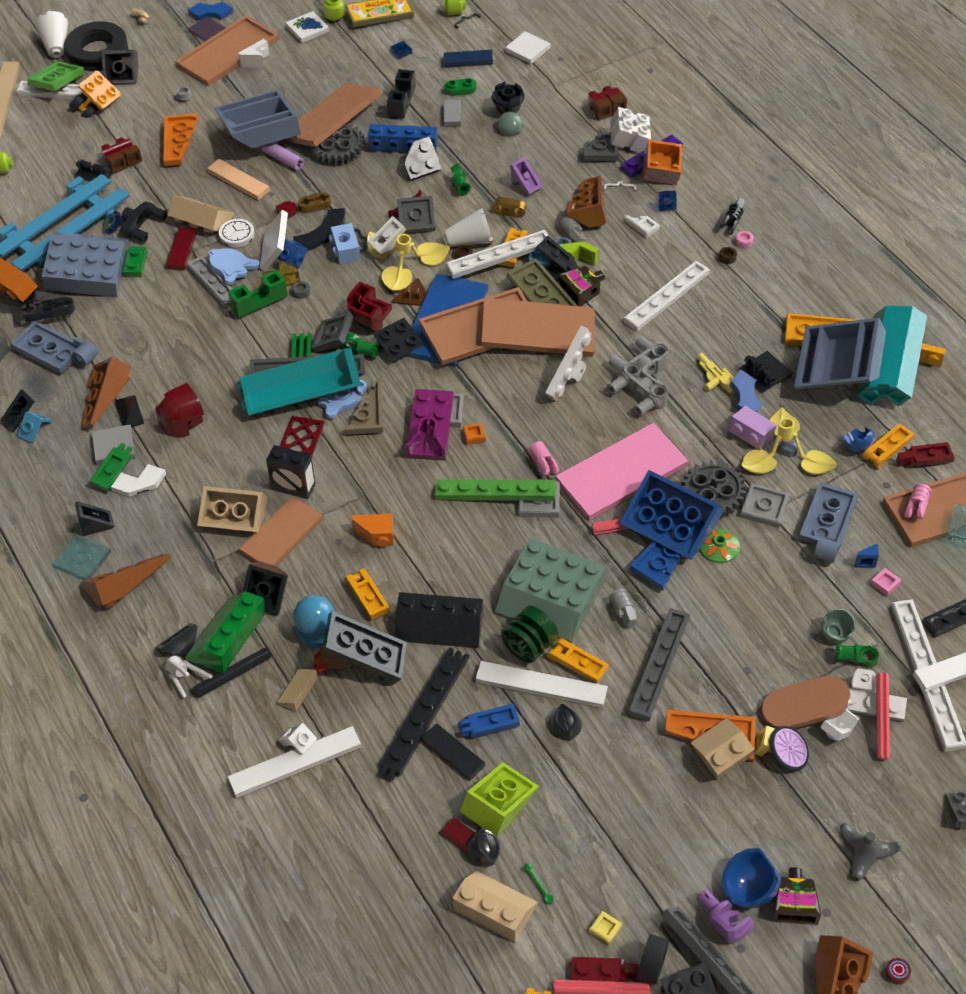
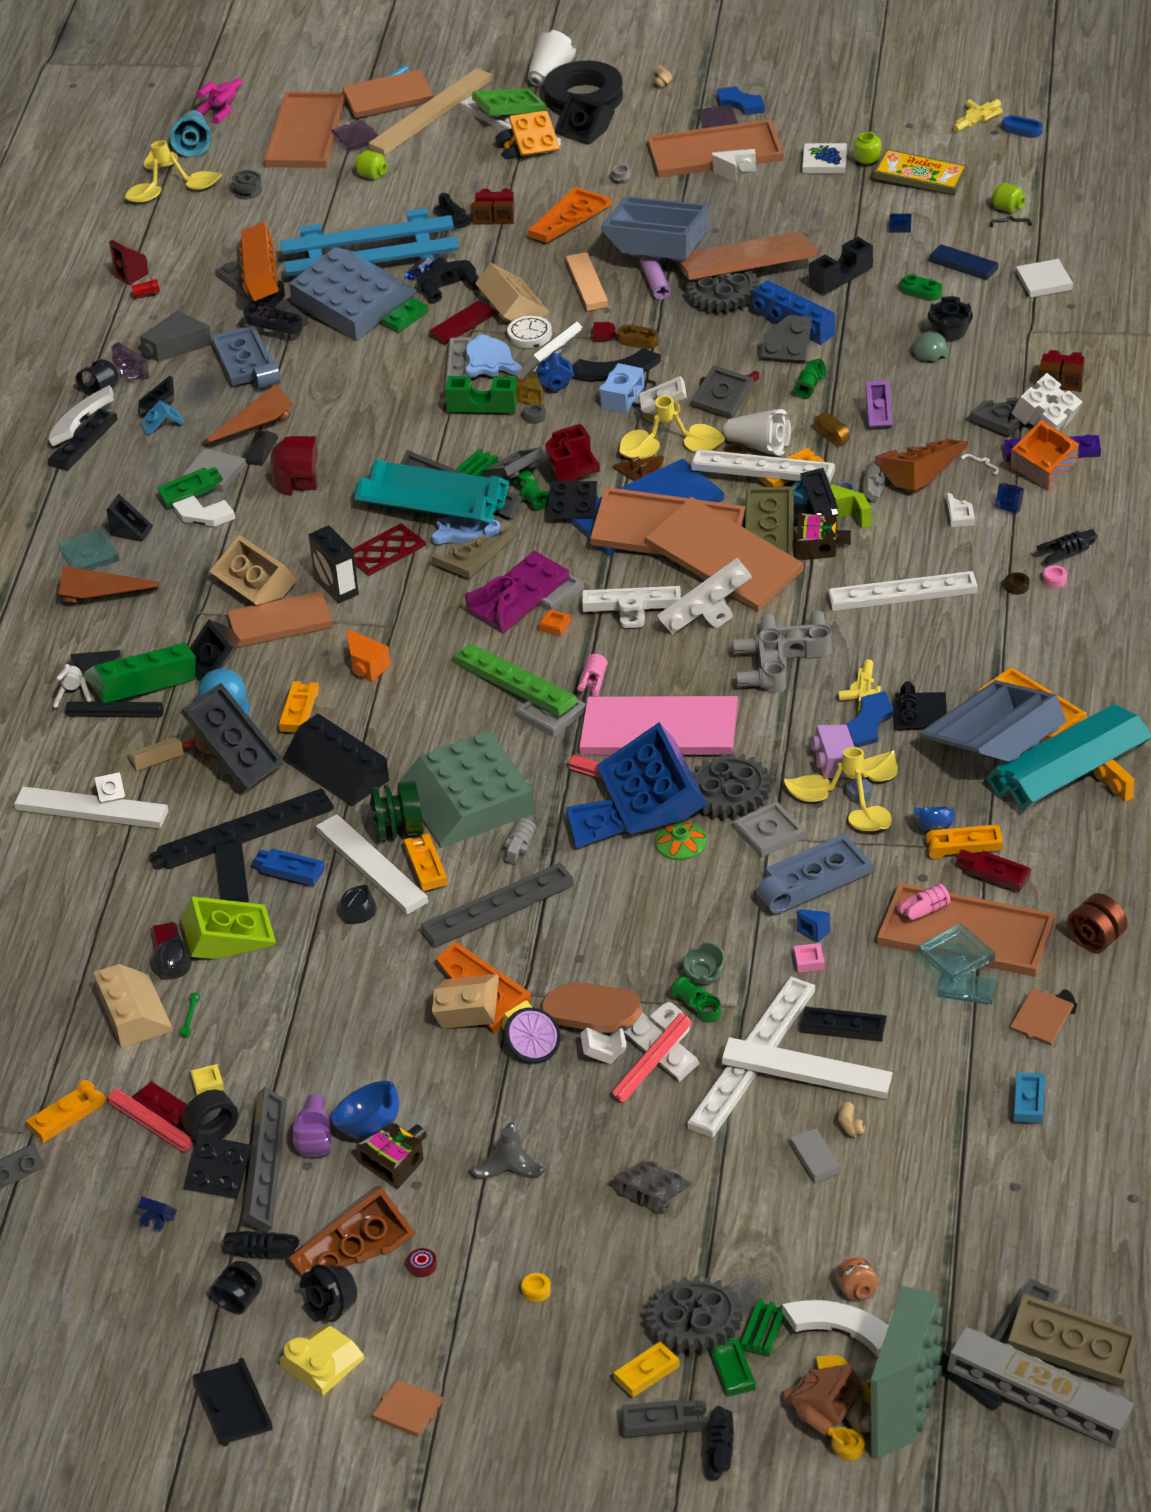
camera: 40 degrees right, 10 degrees down
(452, 112) = (882, 310): light grey tile -> none
(514, 390) = (630, 602): none -> white plate

